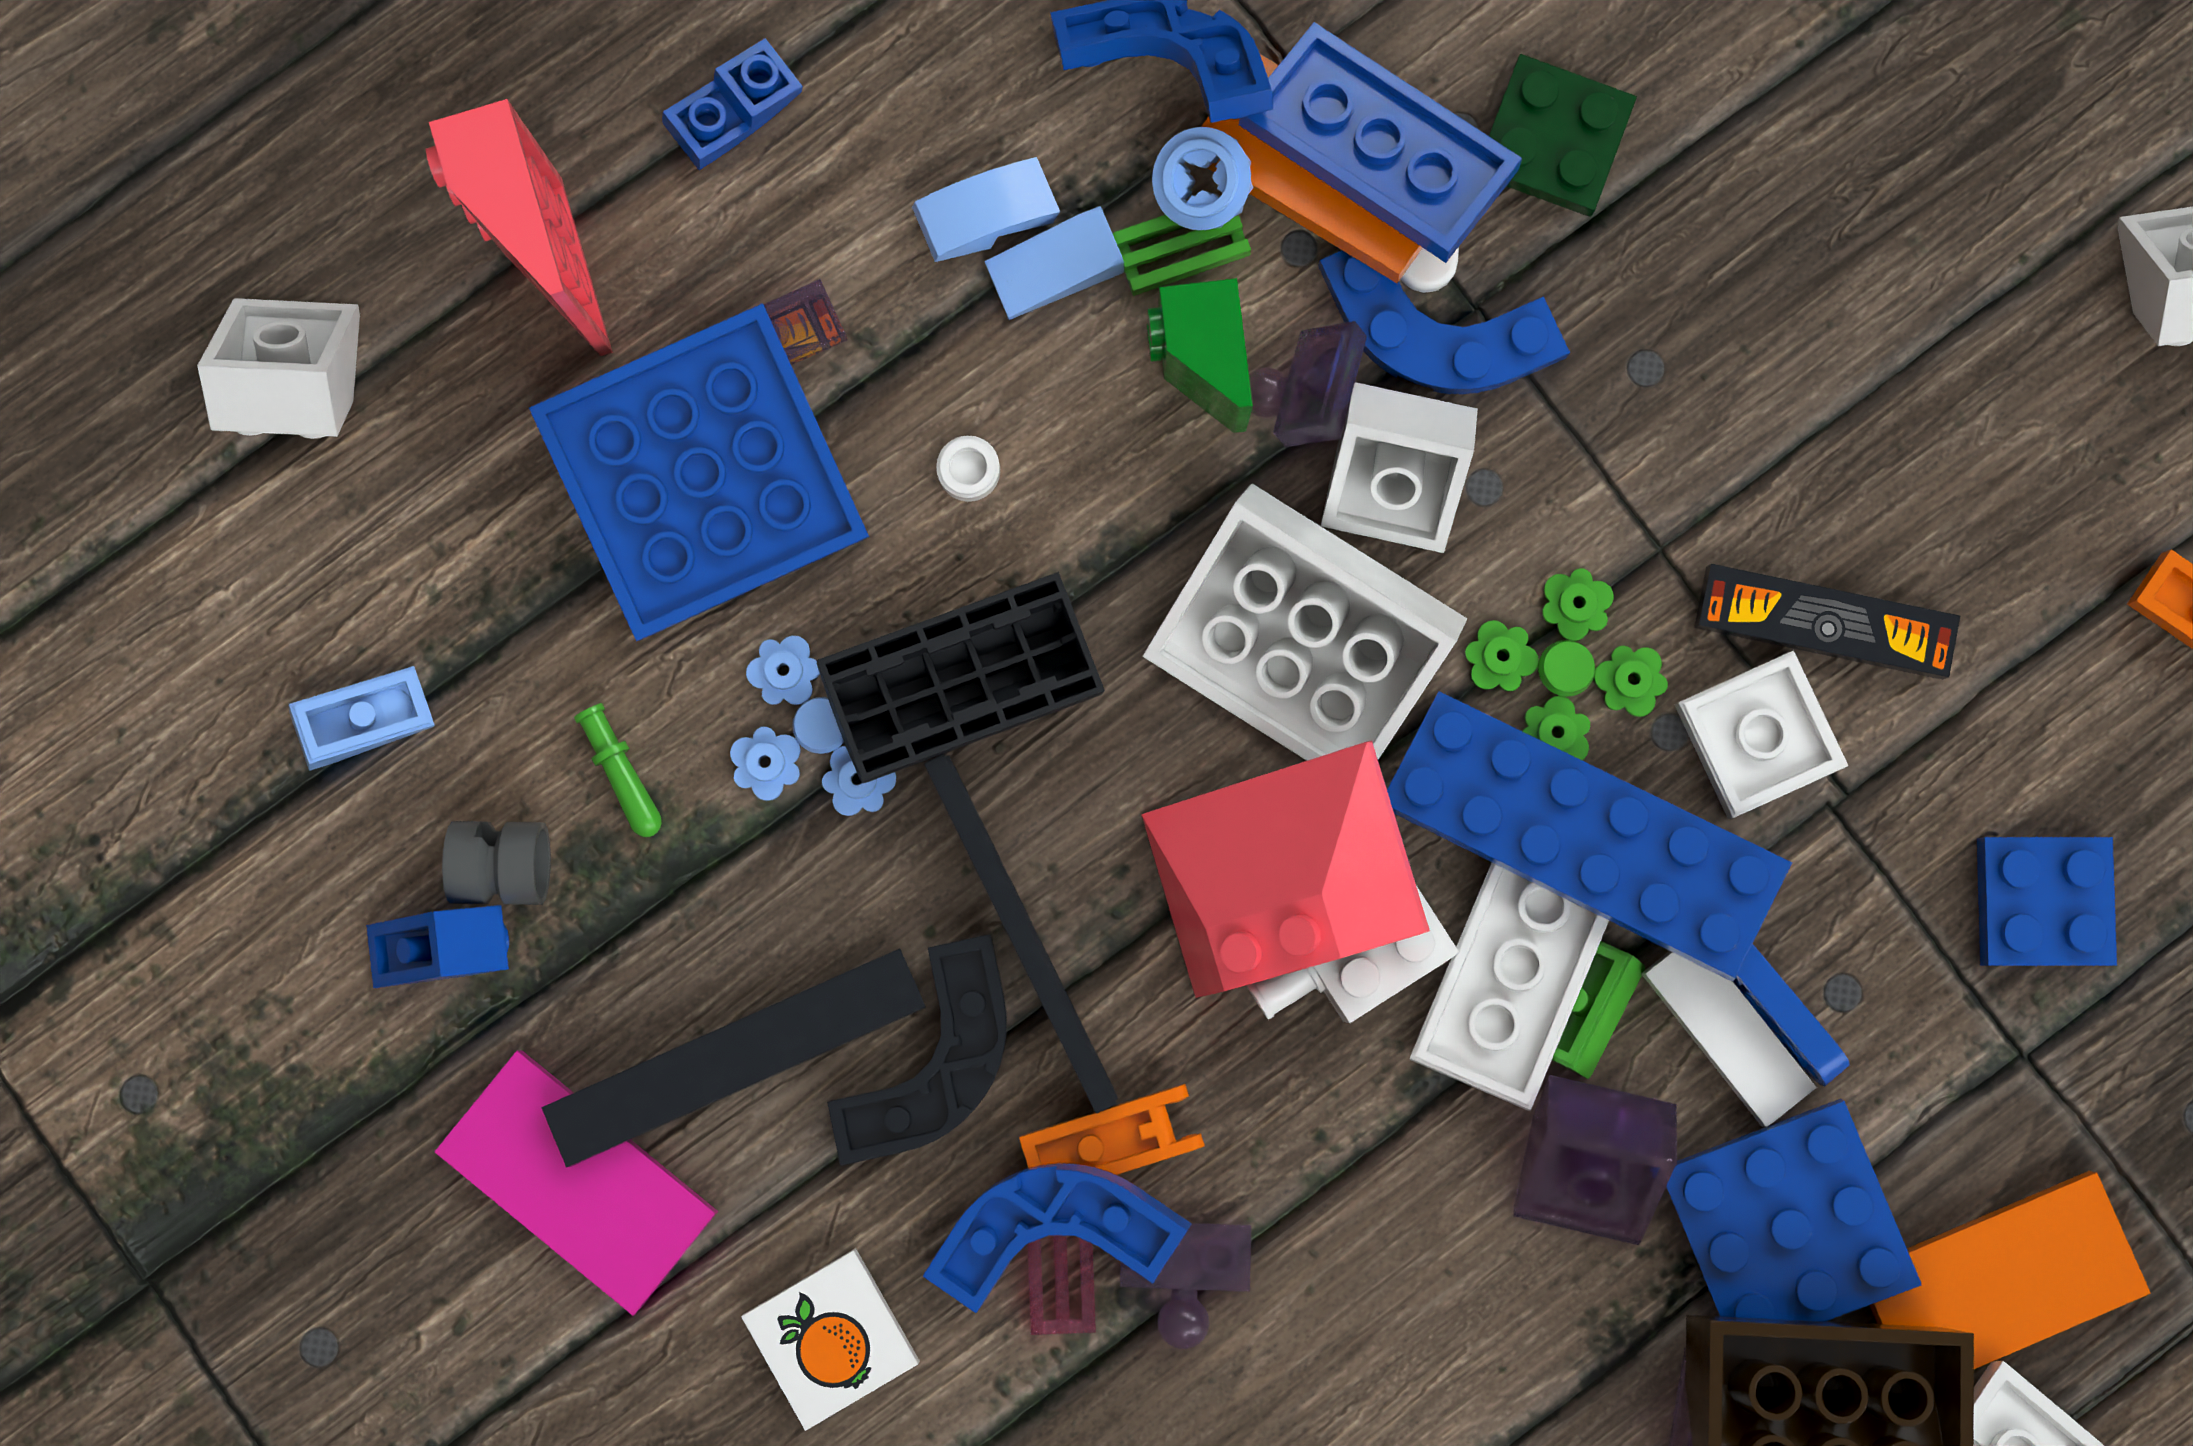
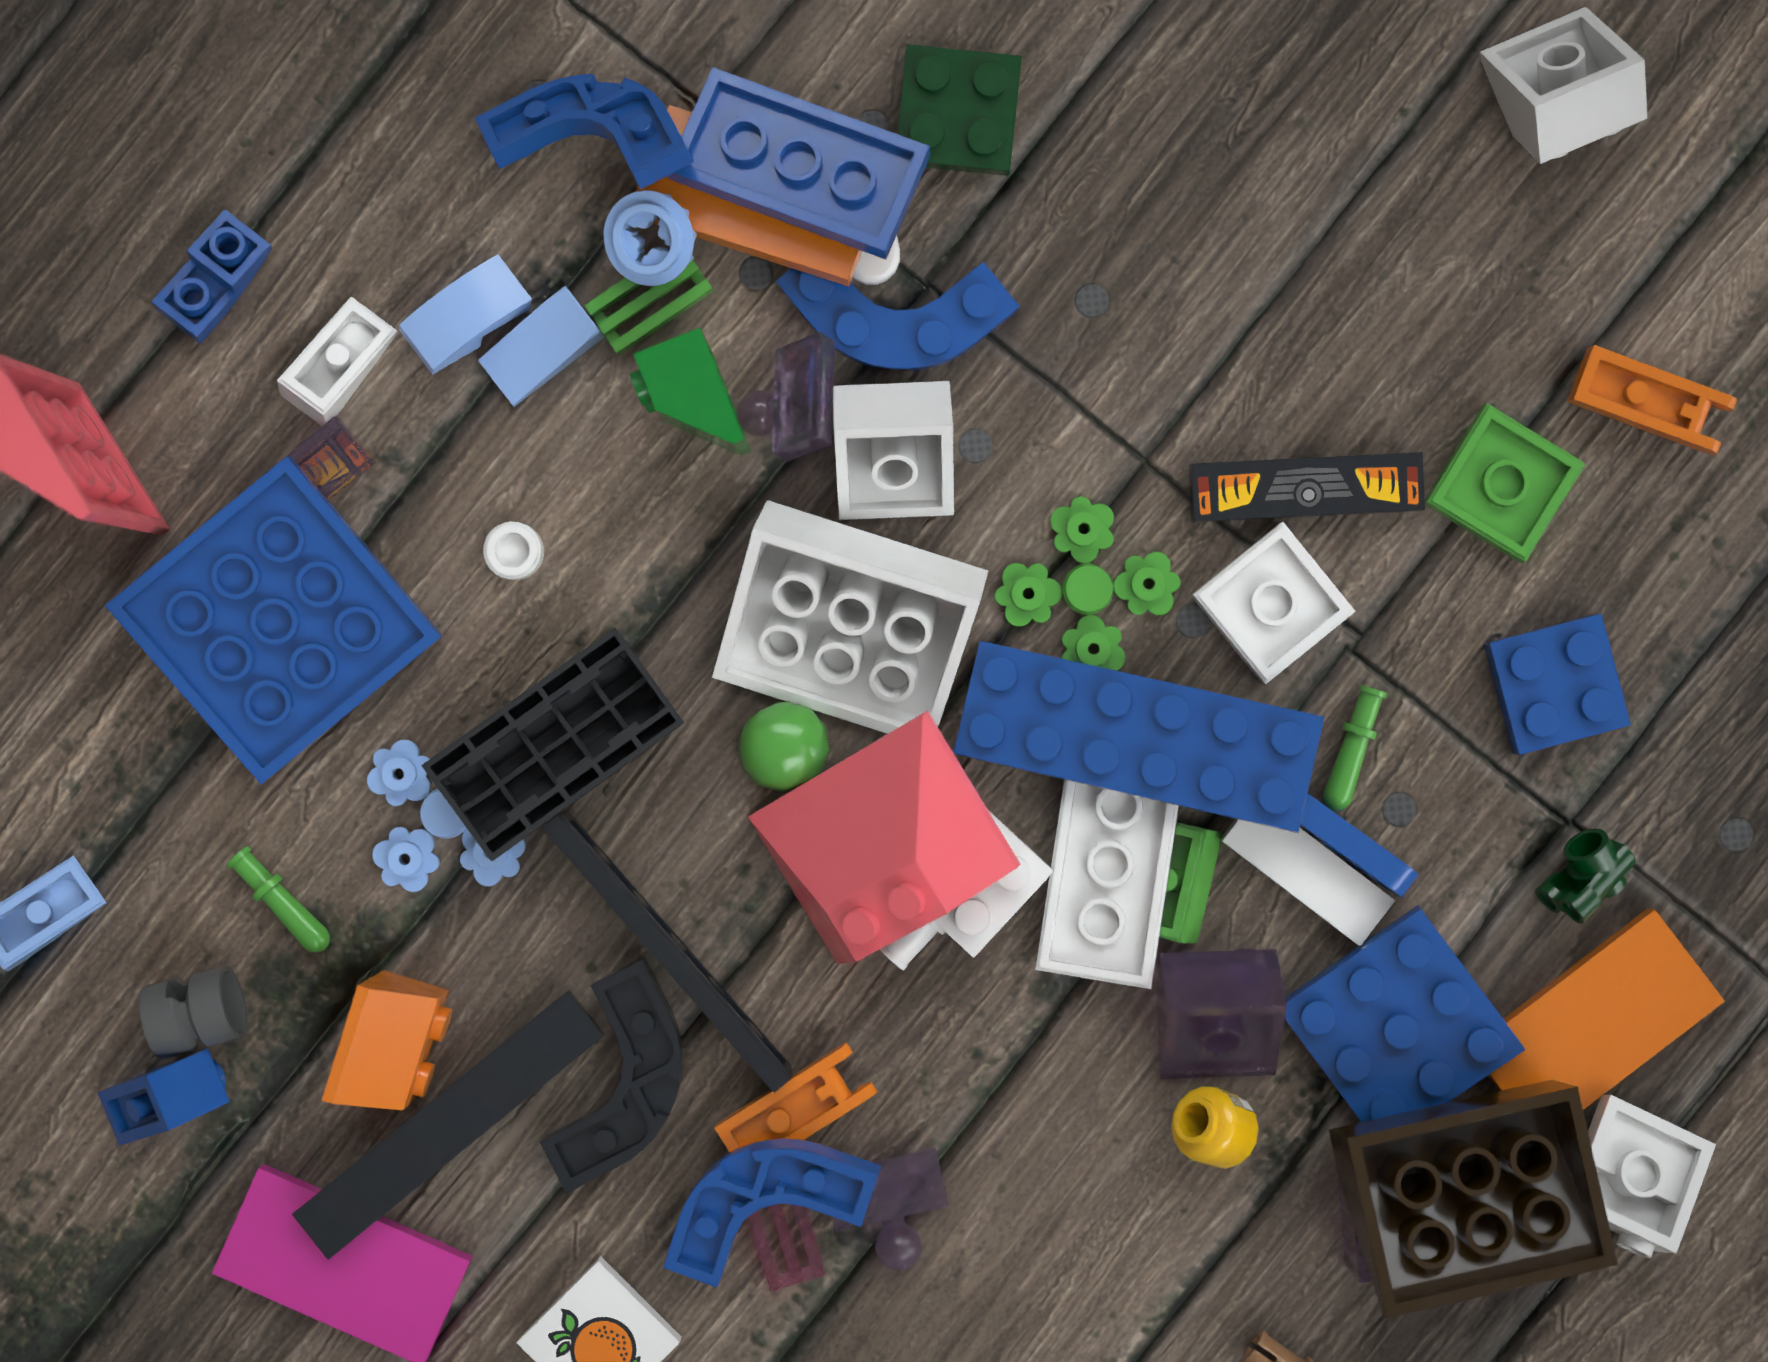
camera: 20 degrees left, 5 degrees up
(696, 951) = (388, 1043): none -> orange slope
(835, 225) = (336, 362): none -> white slope
(1199, 748) = (783, 746): none -> bright green hair
(1562, 1281) = (1214, 1127): none -> yellow head
(1799, 929) = (1348, 763): none -> bright green piece
(2037, 1117) = (1593, 873): none -> dark green plate
(2039, 673) = (1504, 483): none -> bright green tile

